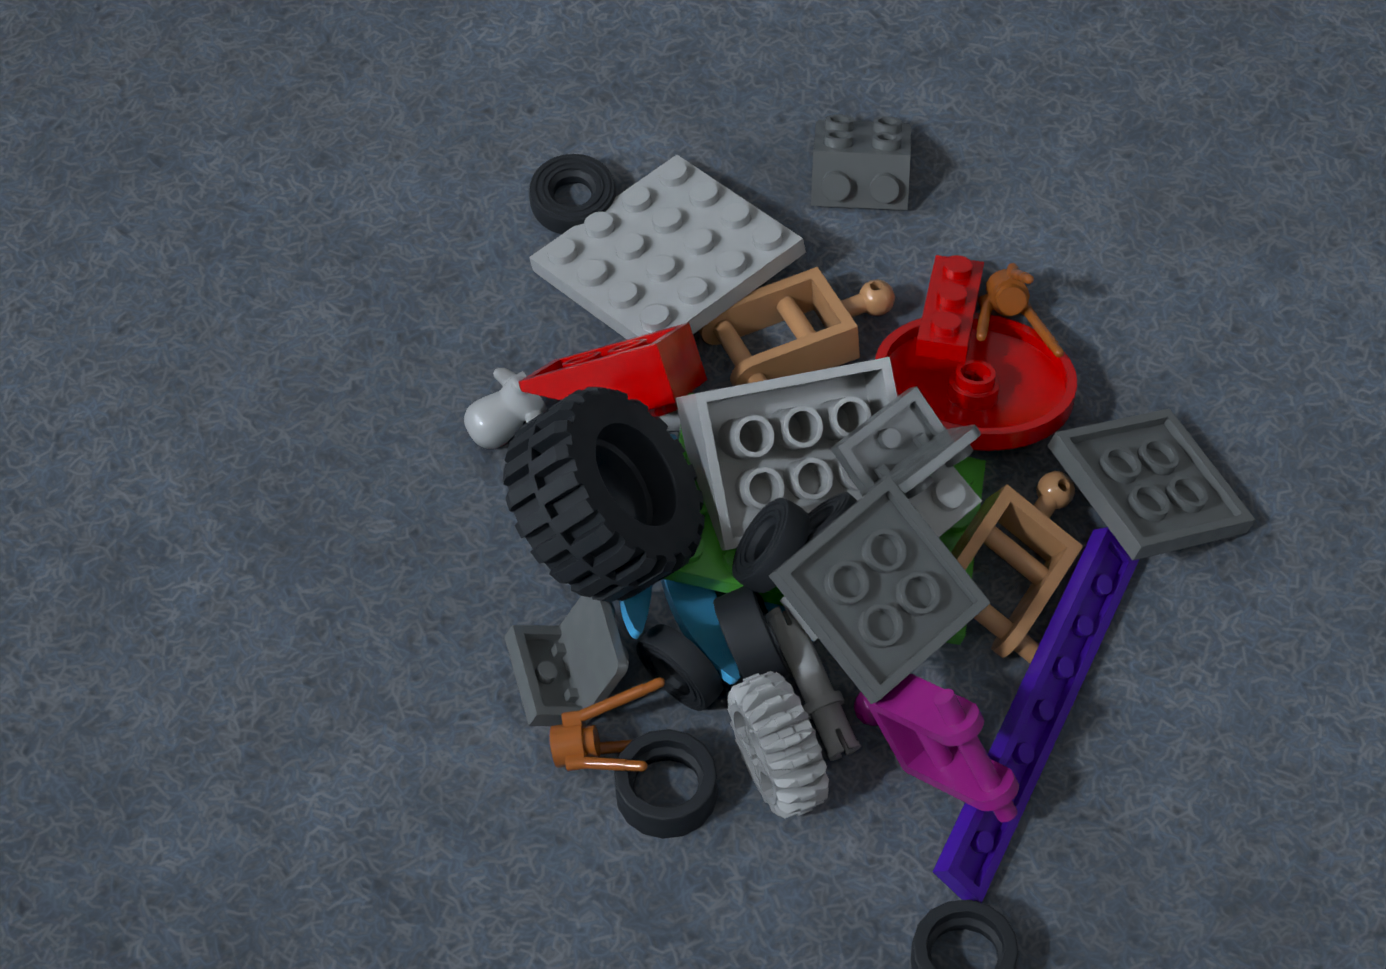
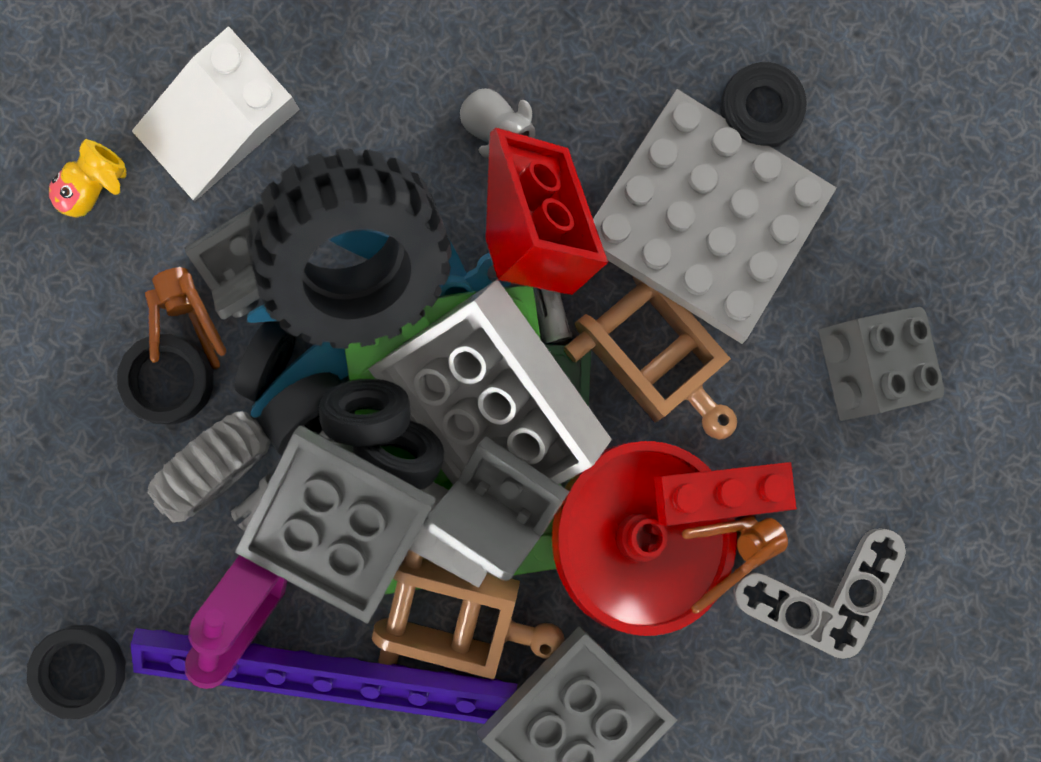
camera: 70 degrees right, 30 degrees up
(395, 662) = (214, 114): none -> white slope
(418, 806) = (81, 181): none -> yellow animal
(1095, 256) = (826, 617): none -> light grey beam

